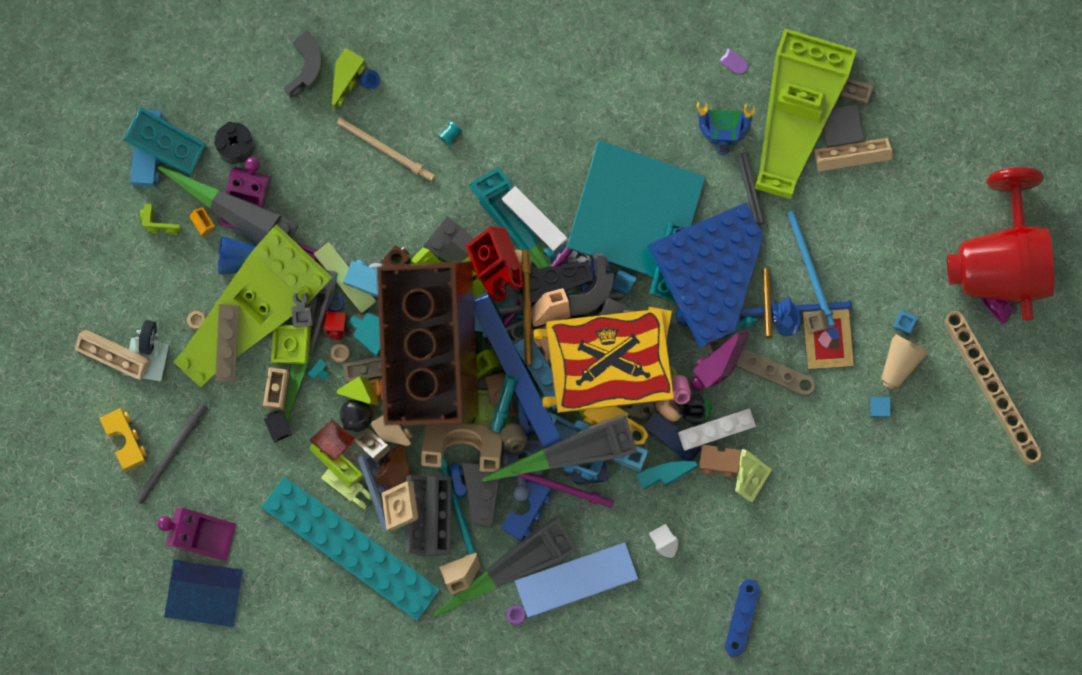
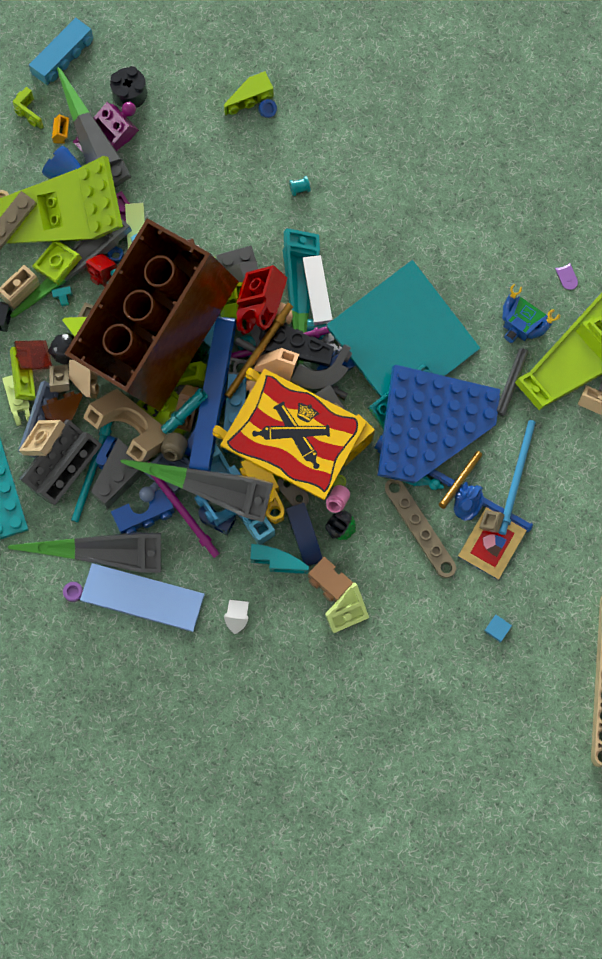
camera: 30 degrees right, 5 degrees down
(164, 142) = (75, 52): teal tile -> none
(302, 313) = (80, 241): dark grey plate -> none
(309, 49) = (228, 72): dark grey arch -> none
(340, 353) = (90, 294): tan tile -> none
(416, 167) = (254, 194): tan bar -> none
(460, 573) = (52, 526): tan slope -> none
(624, 282) = (354, 386): dark azure tile -> none
(668, 410) = (317, 510): light nougat hair -> none
(716, 429) = (346, 553): white plate -> none
(720, 364) = (386, 499): magenta slope -> none
(742, 618) = (256, 724): blue plate -> none
(901, 361) = (542, 601): tan cone -> none
(905, 322) = (567, 573): dark azure tile -> none

